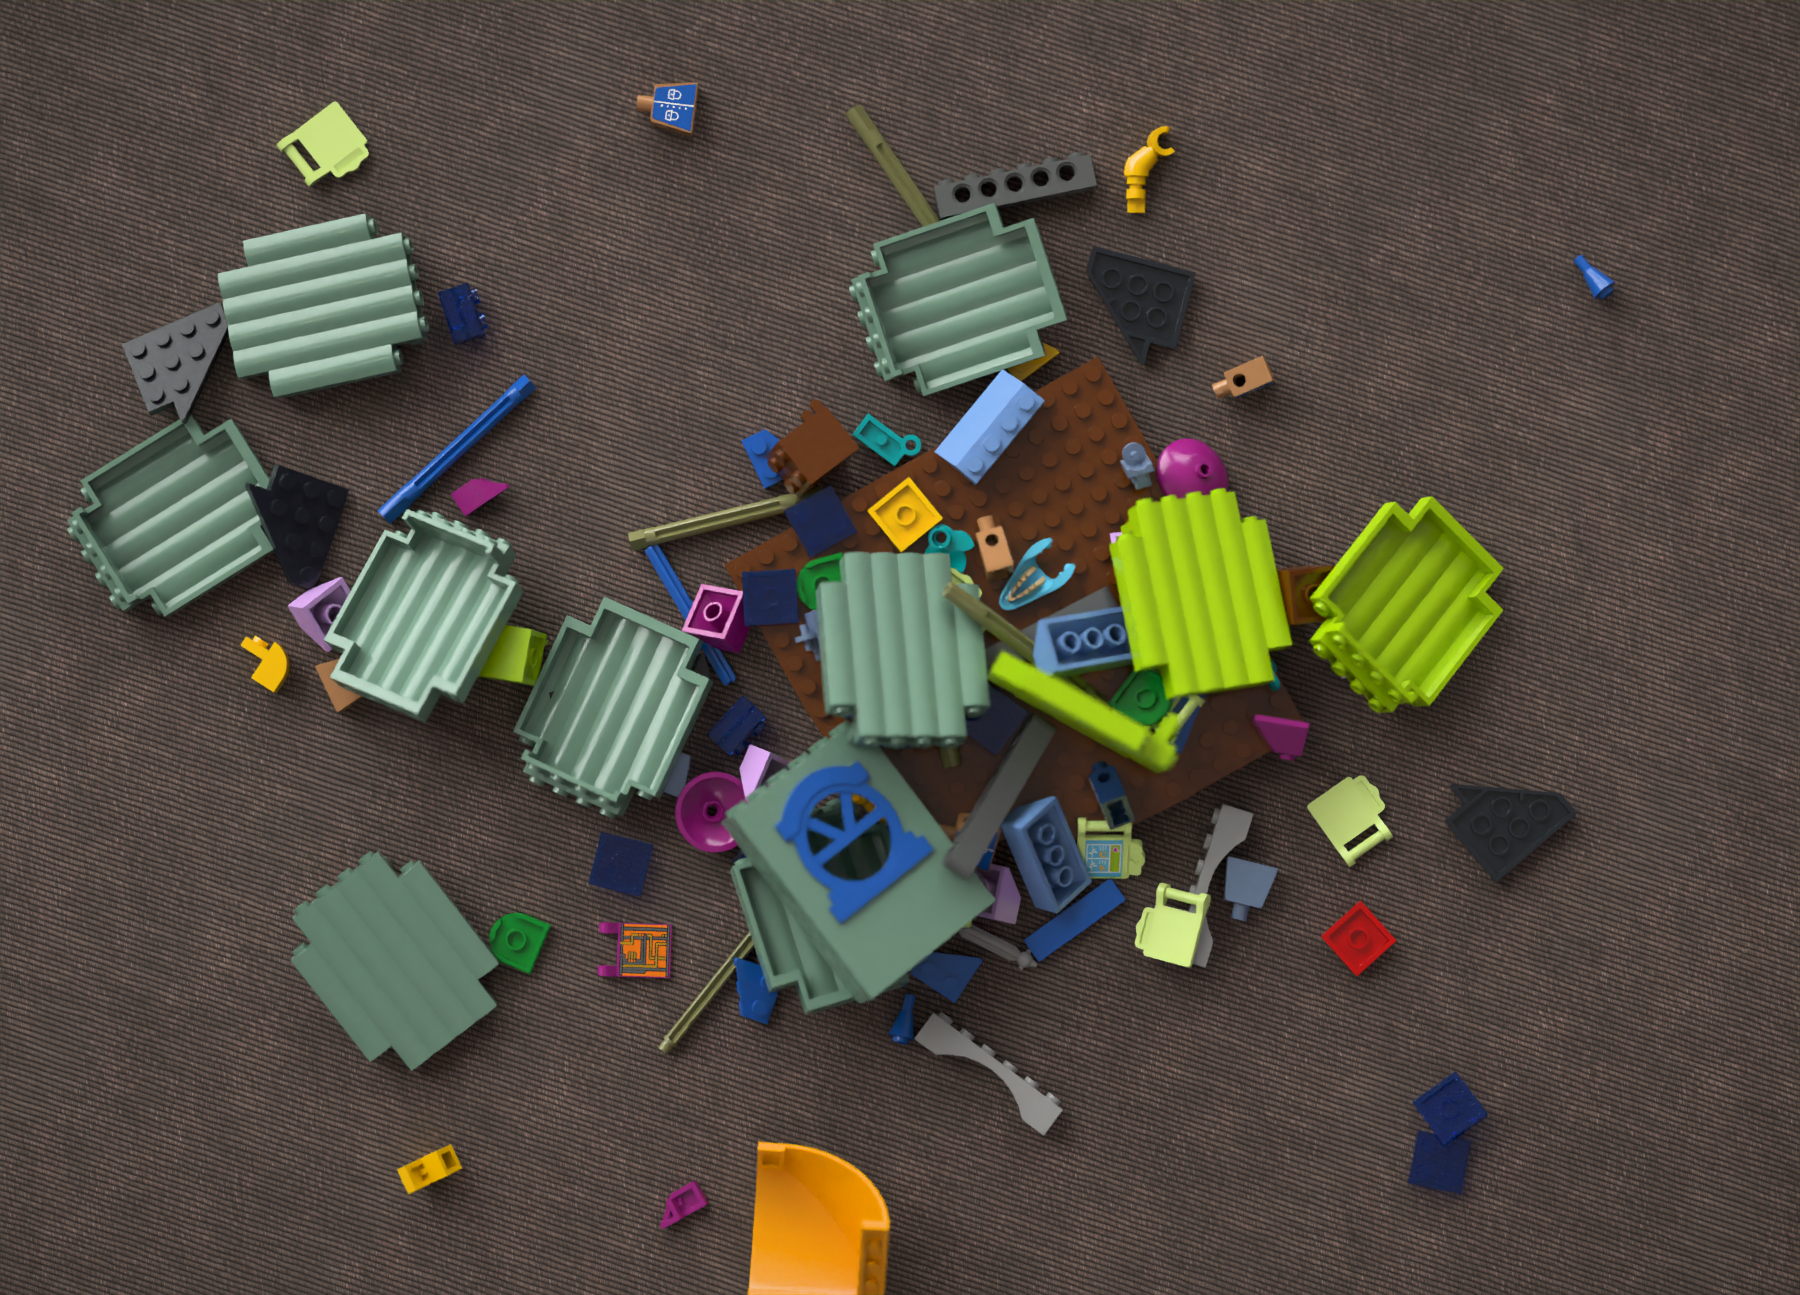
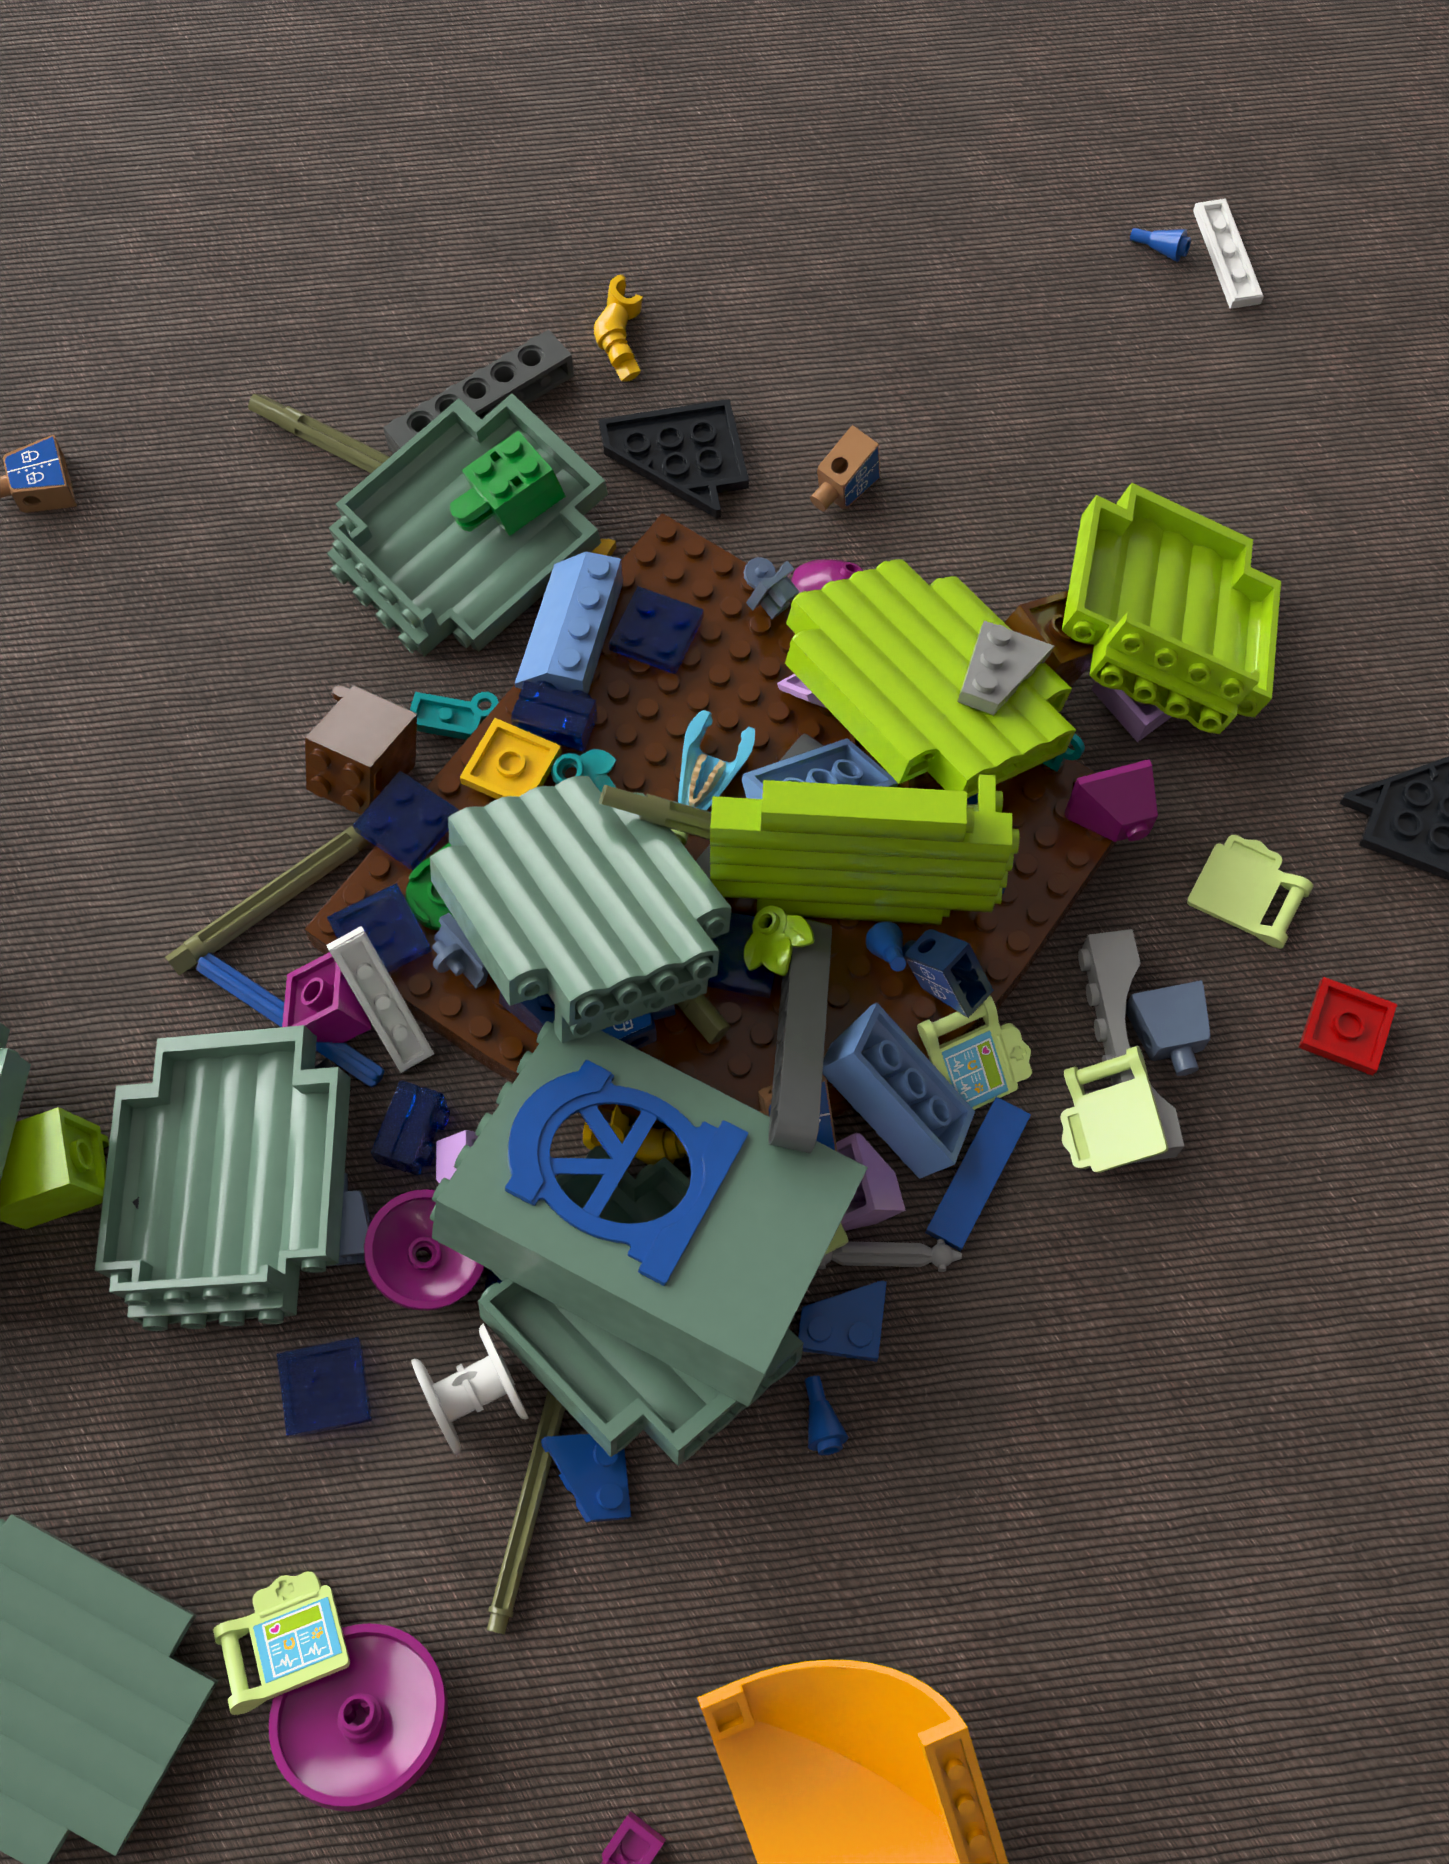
camera: 20 degrees left, 20 degrees down
(518, 940) = (216, 1570): green tile -> none
(548, 999) = (292, 1637): none -> piece
(569, 1060) = (365, 1728): none -> magenta dish
(641, 950) = (403, 1499): flag -> none
(706, 910) = (468, 1389): none -> white piece
(753, 641) = (380, 999): none -> white tile
(757, 448) = (315, 810): blue wing -> none
(943, 1039) = (1061, 1449): light grey arch -> none
(949, 492) = (555, 714): none -> clear blue brick
(996, 558) = (645, 753): medium nougat torso -> none
(997, 294) = (508, 485): none -> green brick
(1013, 729) = (775, 944): none -> lime plate
(1048, 454) = (656, 630): none -> clear blue plate
(1085, 757) = (886, 942): none -> blue cone
(1246, 614) = (999, 666): none -> light grey wing
(1640, 309) = (1228, 253): none -> white tile

